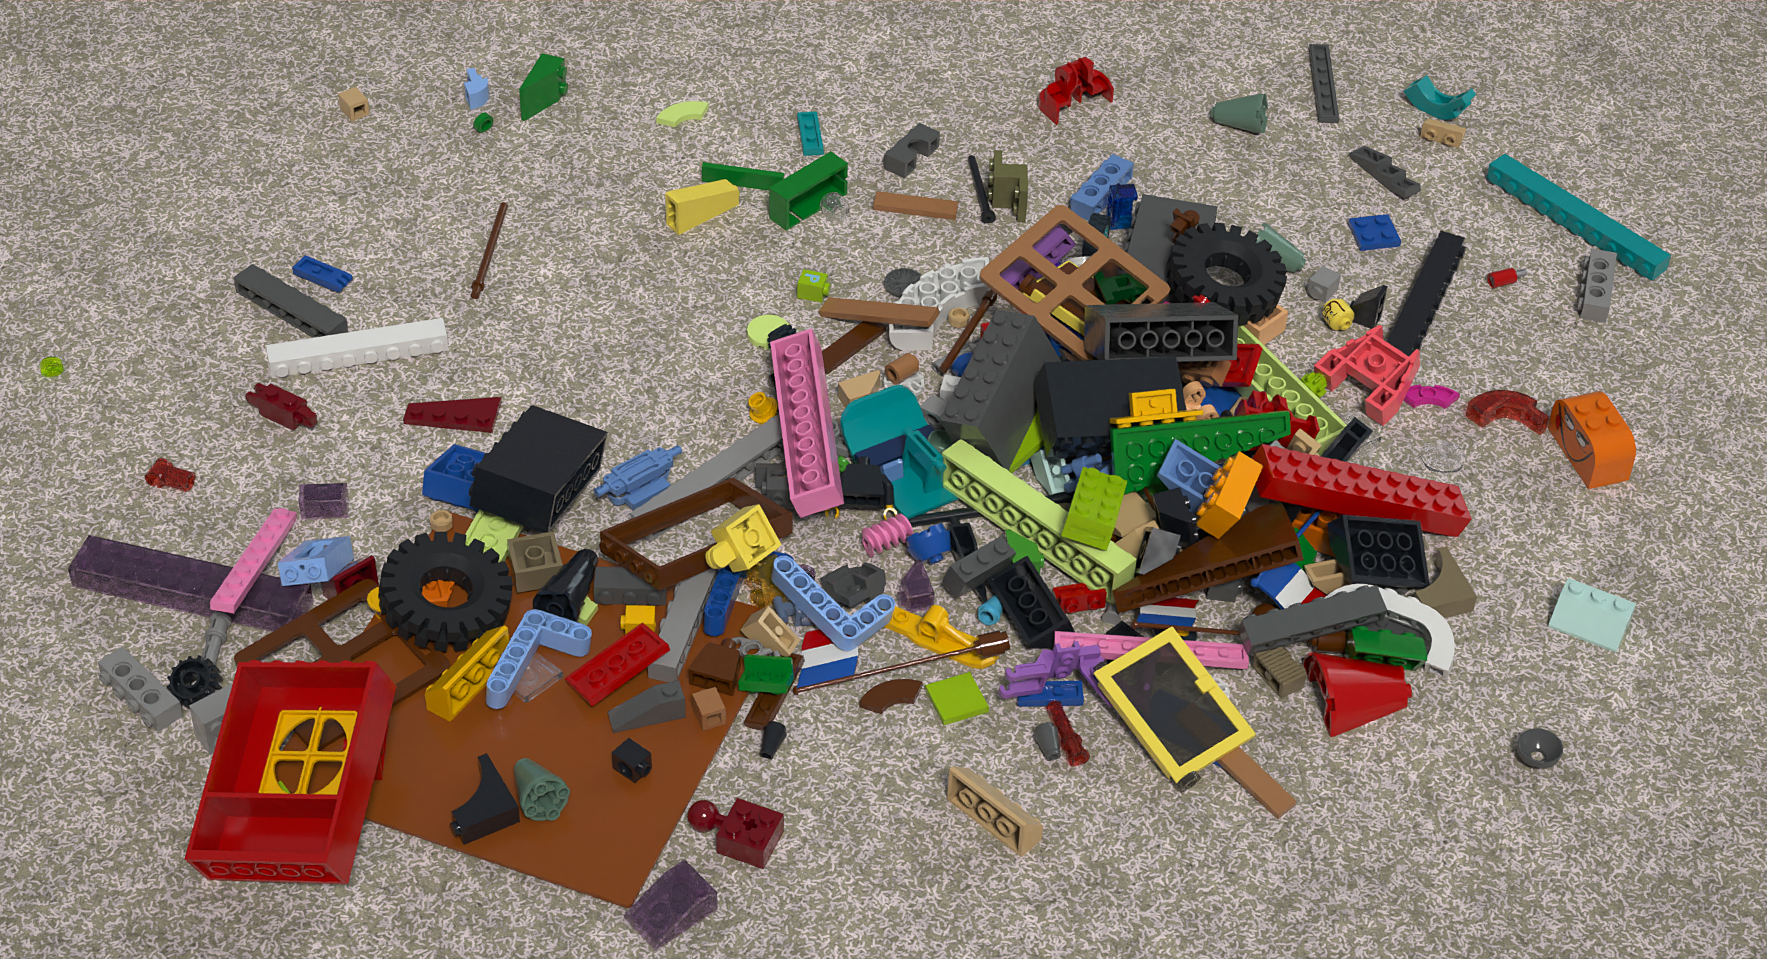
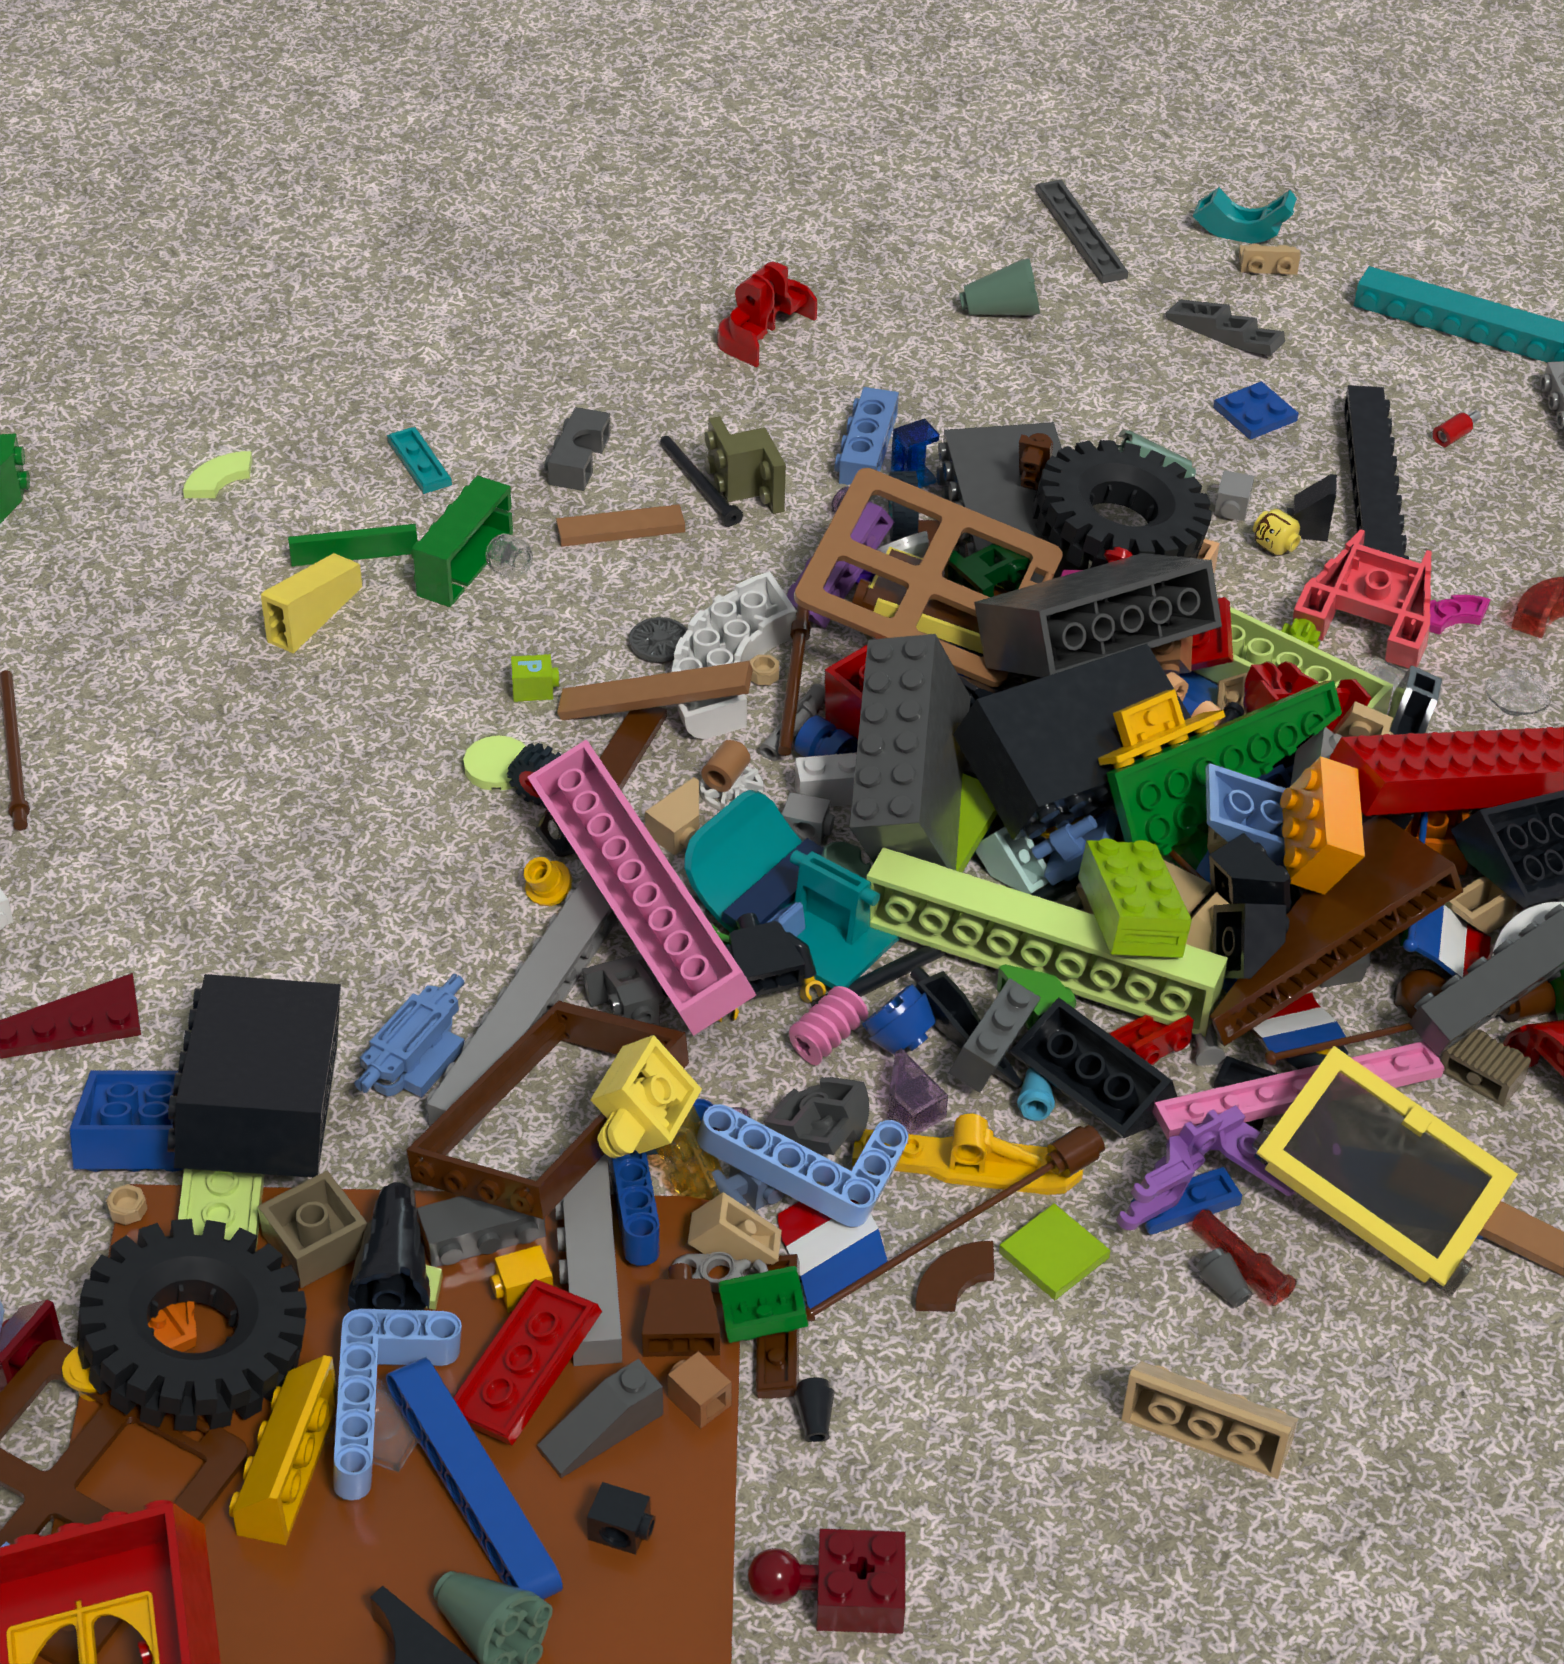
camera: 20 degrees left, 0 degrees up
(560, 716) = (472, 1479): none -> blue beam

